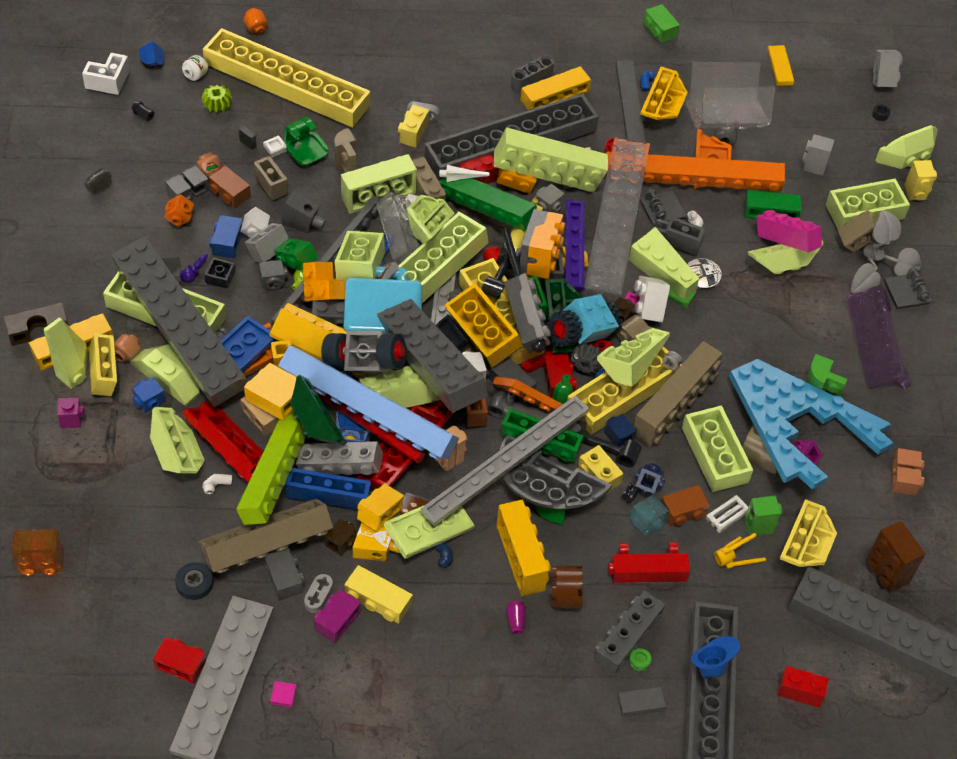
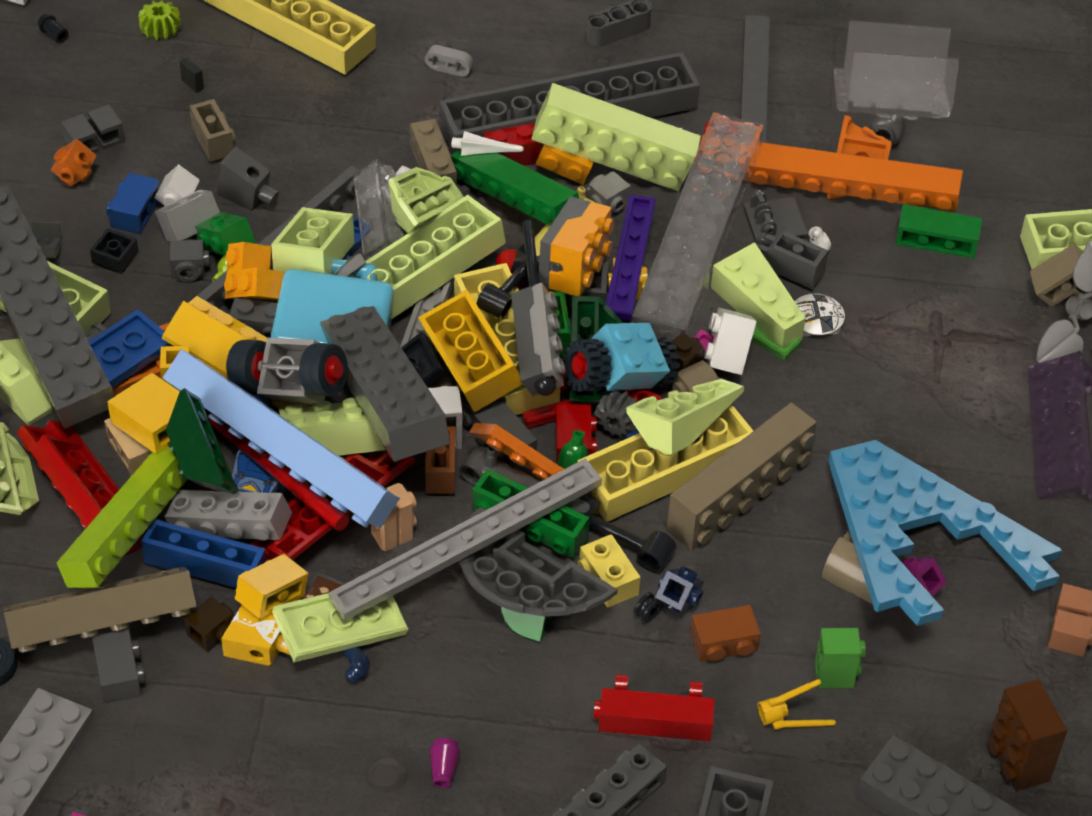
camera: 10 degrees right, 5 degrees down
(188, 275) = (70, 250): dark purple bar -> none
(209, 164) = (129, 107): nougat head -> none
(214, 480) = (45, 529): white arm -> none
(229, 187) = (152, 138): brick -> none
(275, 146) = (229, 90): white tile -> none
(304, 144) = (270, 92): green piece -> none
(322, 595) = (165, 700): light grey beam -> none
(337, 615) = (181, 731): magenta brick -> none
(345, 151) = (324, 105): dark tan brick -> none
(378, 180) = (357, 143): yellowish green brick -> none
(379, 594) = (247, 709): light yellow brick -> none
(414, 125) = (432, 78): light yellow brick -> none
(522, 547) = (470, 665): yellow brick -> none
(556, 88) = (649, 43): yellow brick -> none
(567, 587) = (526, 726): reddish brown brick -> none
(619, 429) = (647, 516): dark blue brick -> none
(645, 77) = (782, 43): blue arm -> none
(649, 515) = (668, 640): clear light blue head -> none
(665, 96) = (804, 67): yellow wedge -> none
(672, 360) = (740, 425): light grey bush -> none
(716, 522) = (792, 656): white tile -> none
(717, 448) = (788, 558): yellowish green brick -> none
(780, 65) = (988, 41): yellow tile -> none
(782, 258) = (946, 299): yellowish green wedge -> none
(789, 231) = (952, 264): dark pink brick -> none
(810, 537) = (903, 694): light yellow wedge -> none
(818, 154) = (1018, 164): light grey brick -> none
(821, 377) = (969, 475): bright green brick -> none

